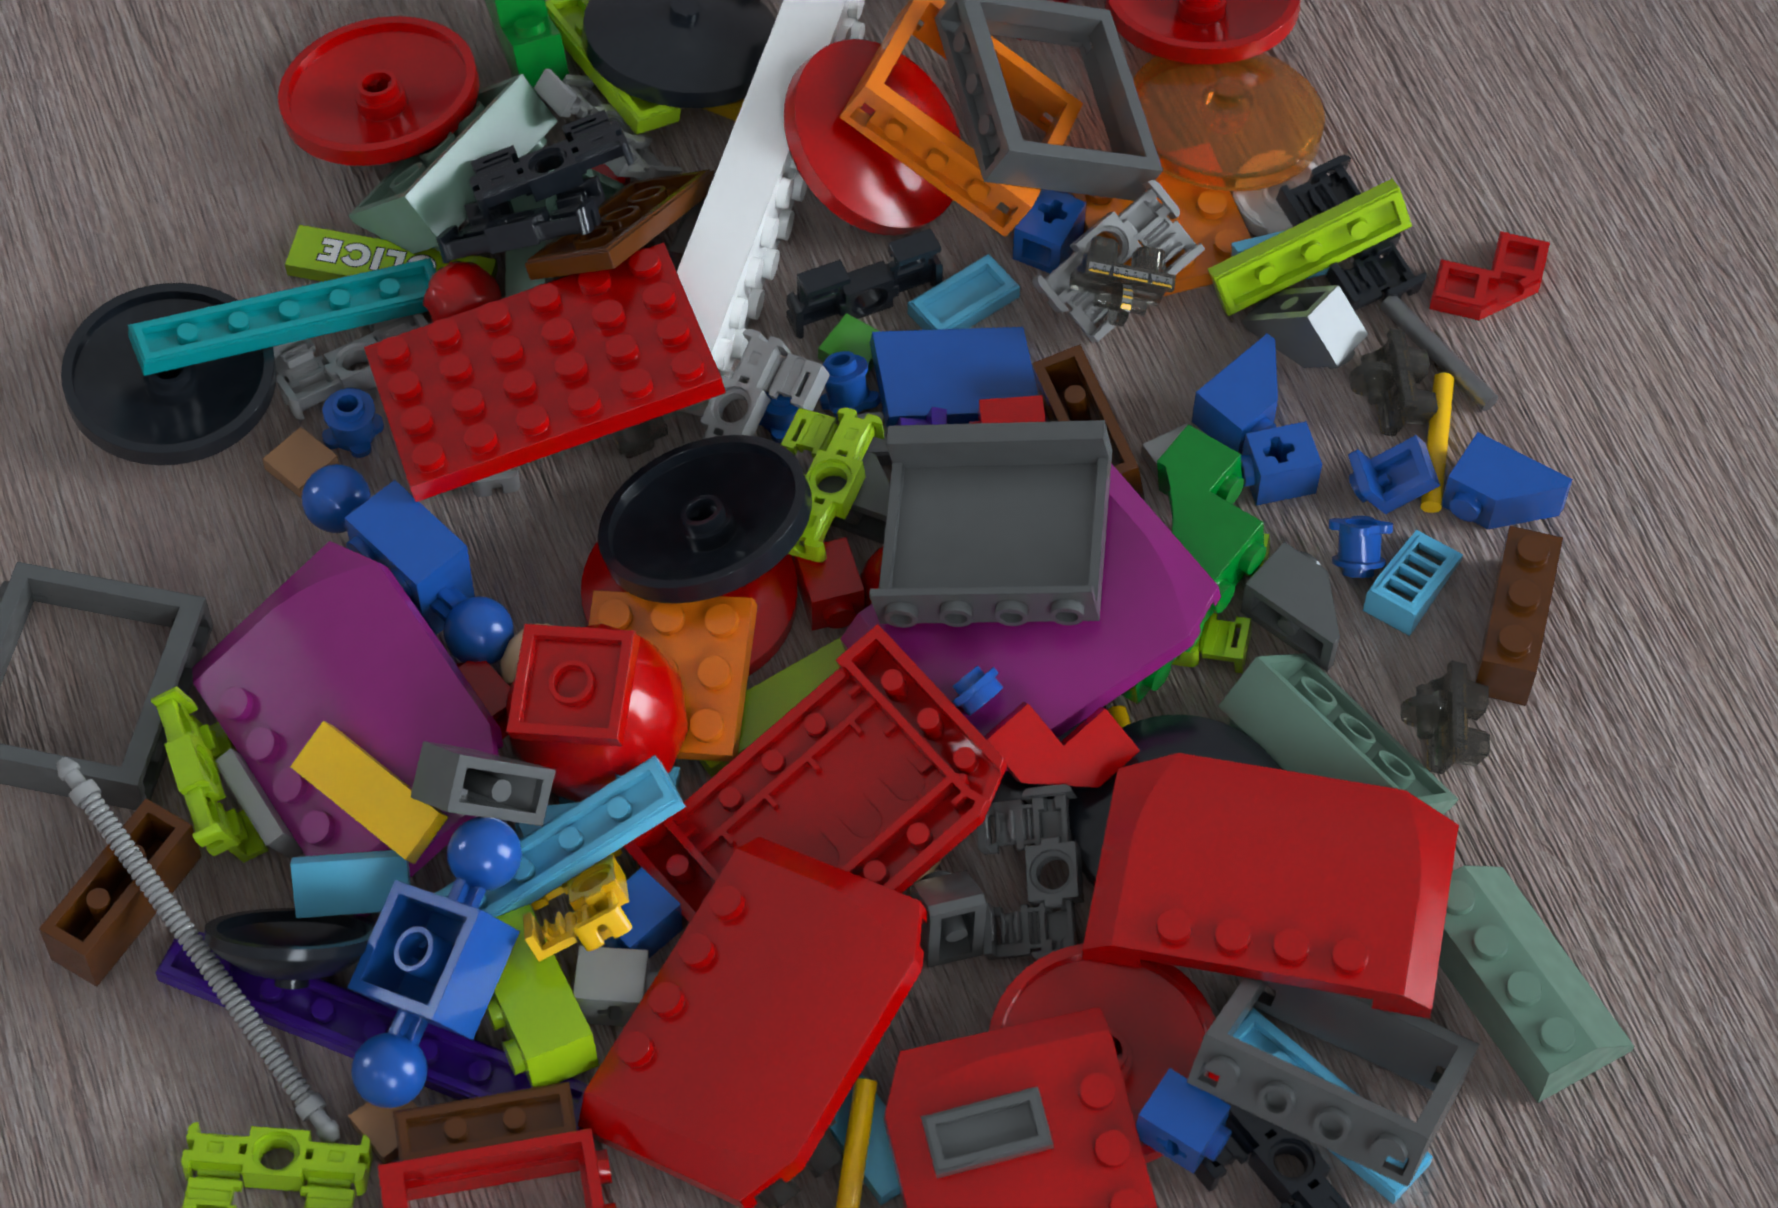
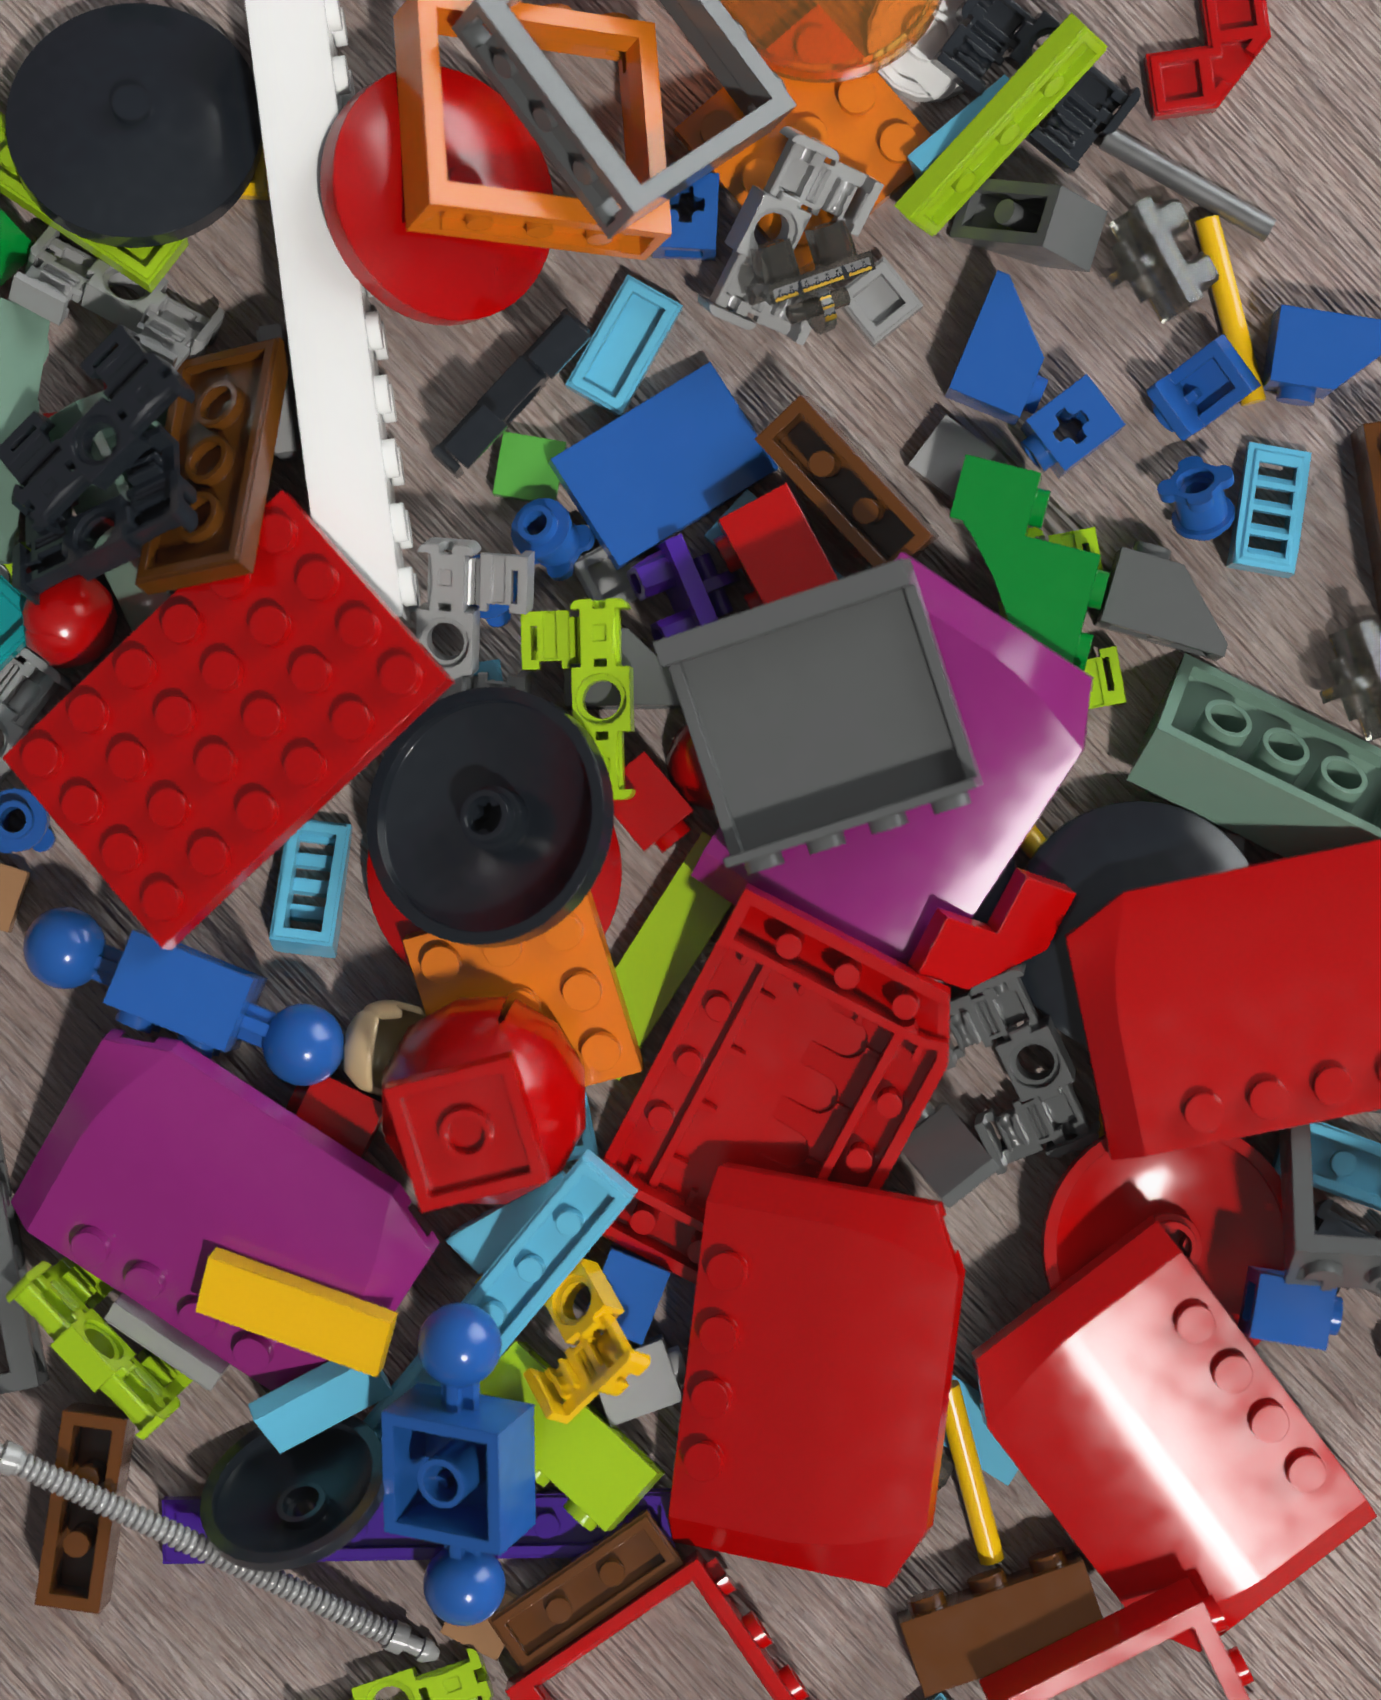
camera: 25 degrees left, 30 degrees up
(482, 784) = (420, 1278): dark grey slope -> none
(532, 581) = (305, 941): none -> medium azure slope
(976, 689) = (883, 917): blue plate -> none
(987, 1132) = (1104, 1415): dark grey tile -> none
(1168, 341) = (880, 302): none -> light grey tile

